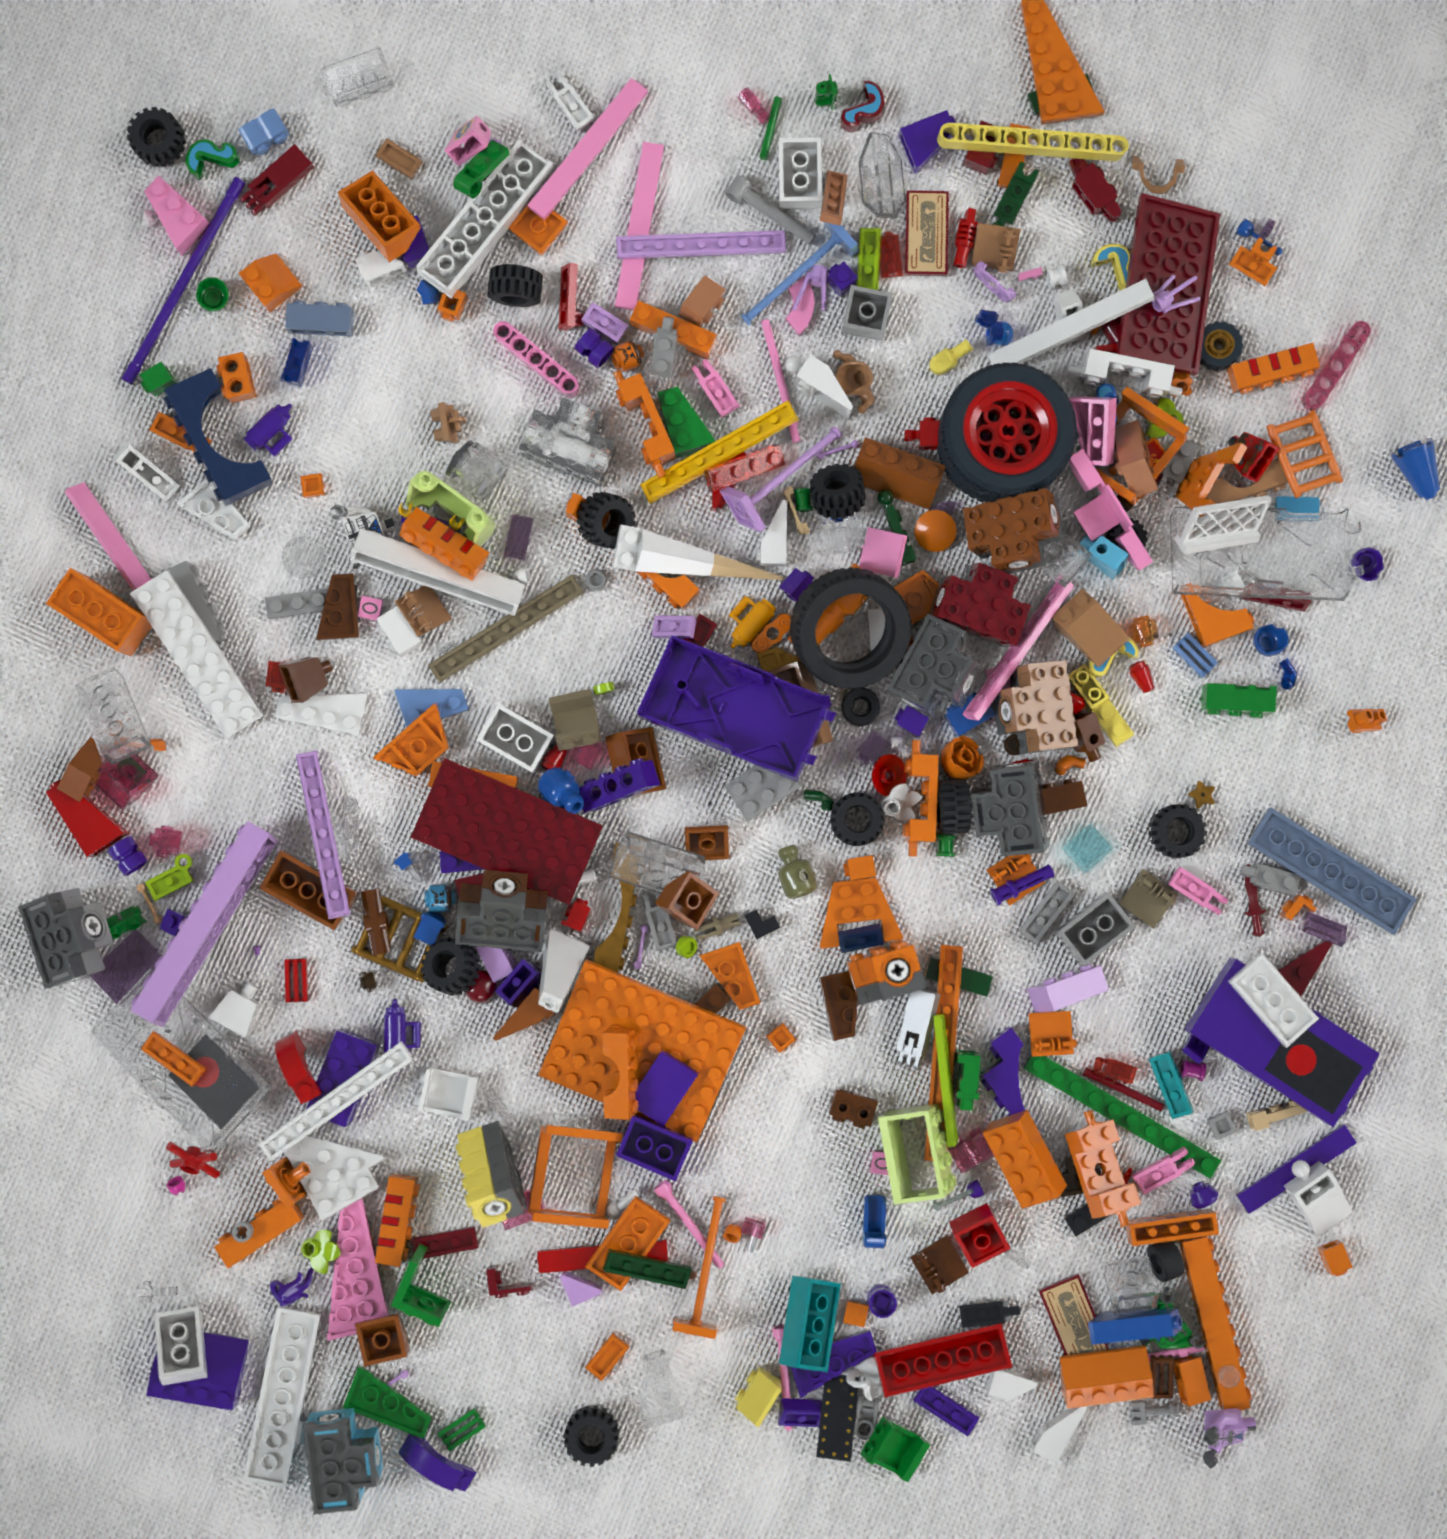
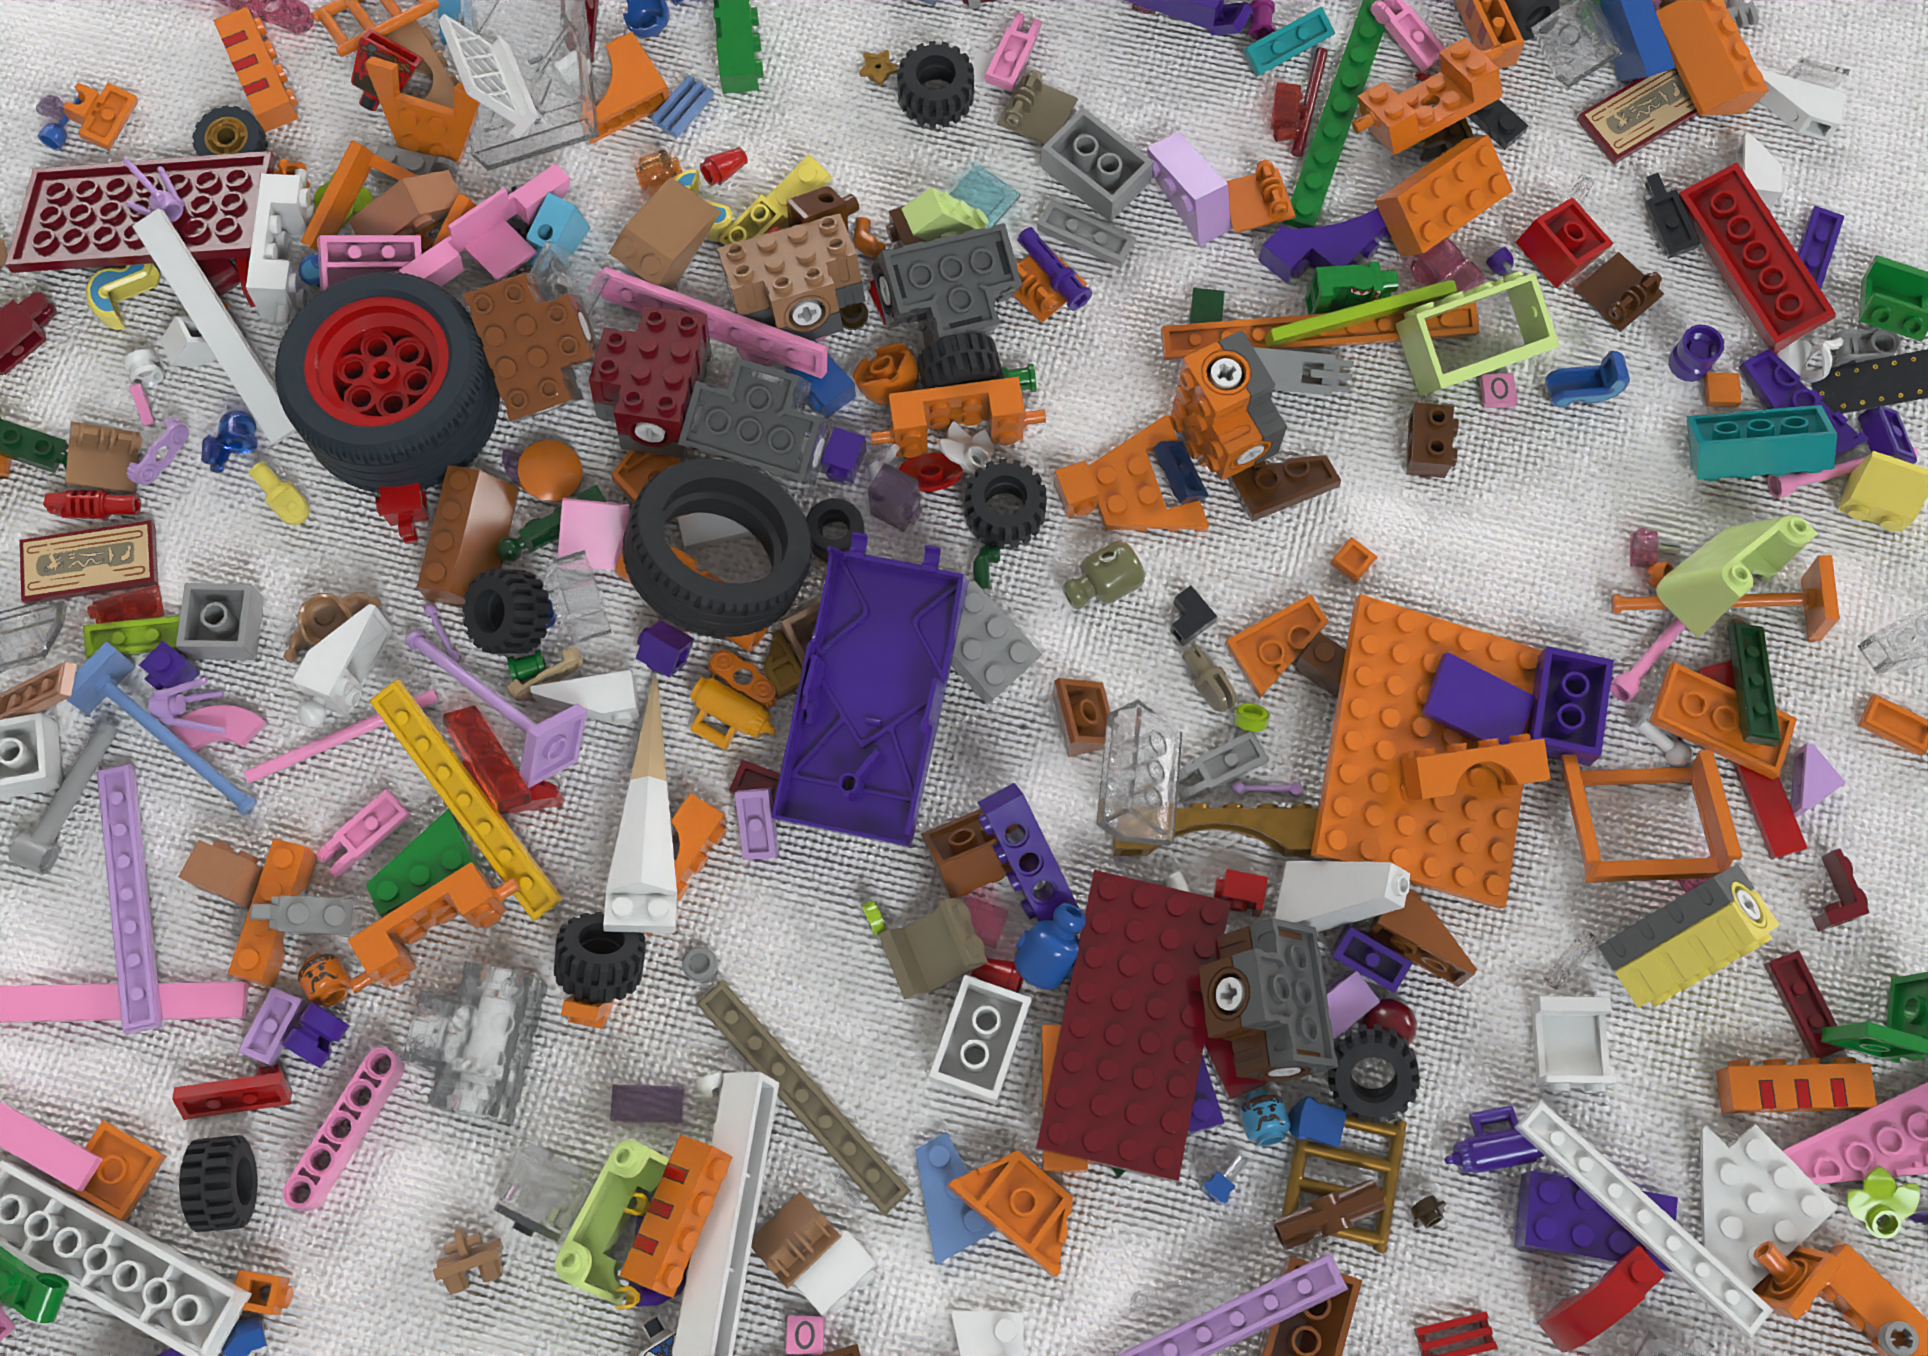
camera: 100 degrees left, 15 degrees down
(687, 899) = (1182, 722): dark orange slope -> none
(714, 1251) = (1723, 568): none -> yellowish green windscreen
(1061, 817) = (940, 214): none -> yellowish green arch

